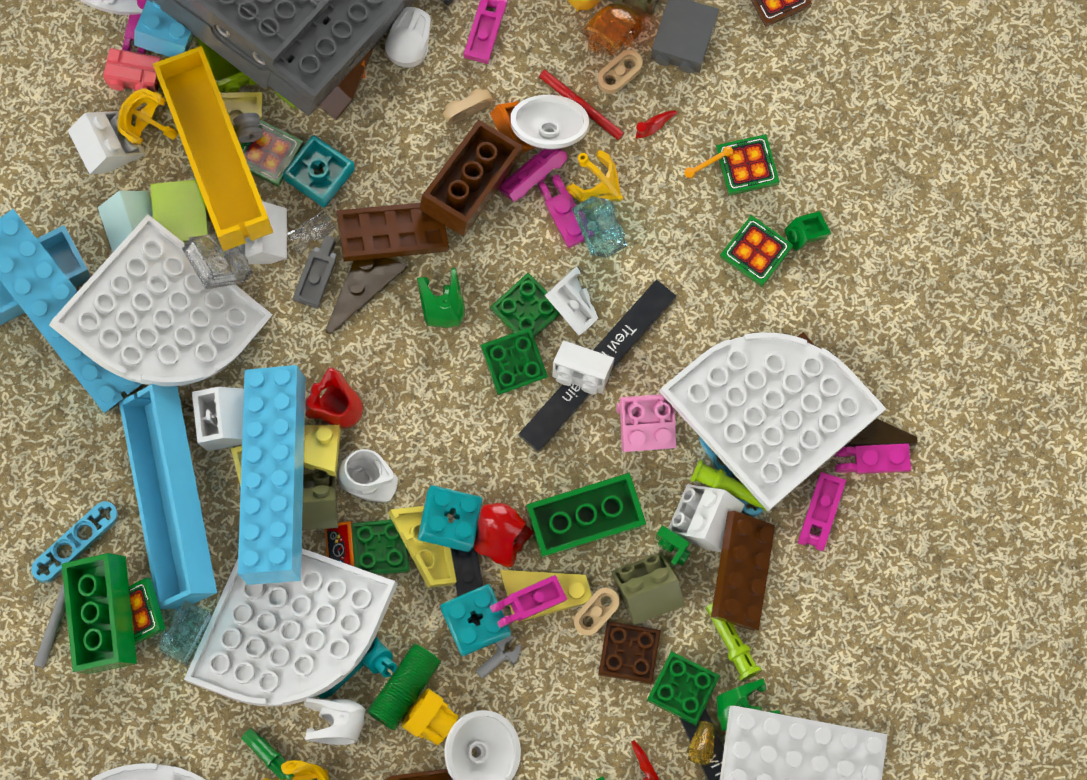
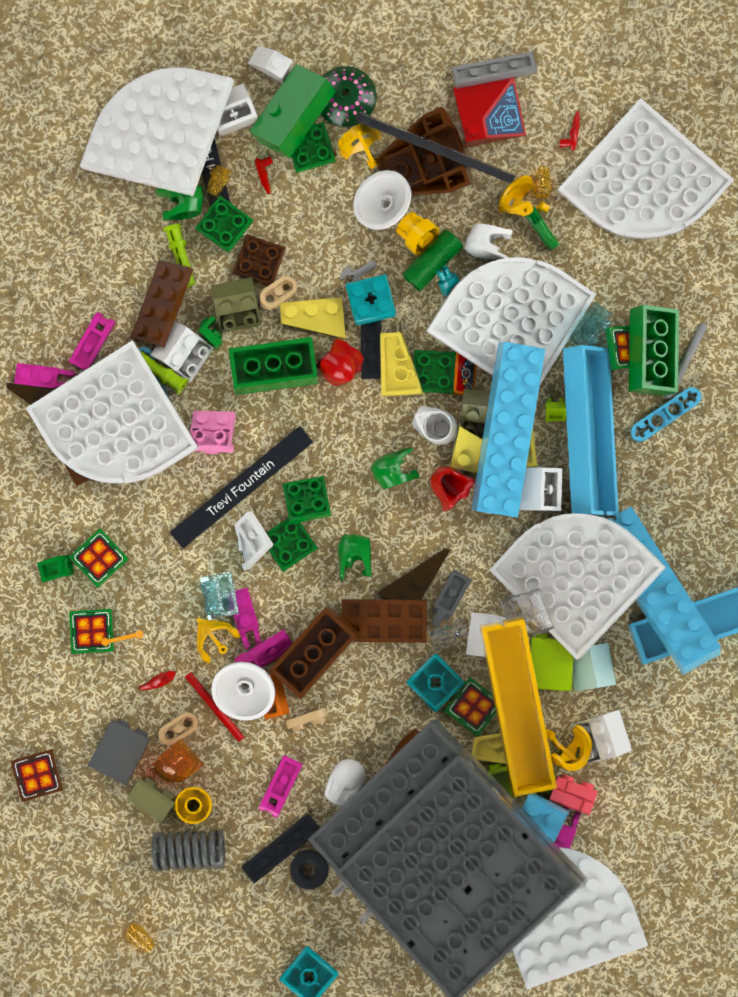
camera: 165 degrees left, 10 degrees up
(217, 521) = (555, 410): none -> lime tile
(248, 127) = (486, 725): light grey wheel -> none
(418, 412) = (387, 469): none -> green helmet
(435, 524) = (388, 373): teal brick -> none
(531, 600) = (327, 303): dark pink hinge -> none
(582, 368) = (254, 480): white slope -> none

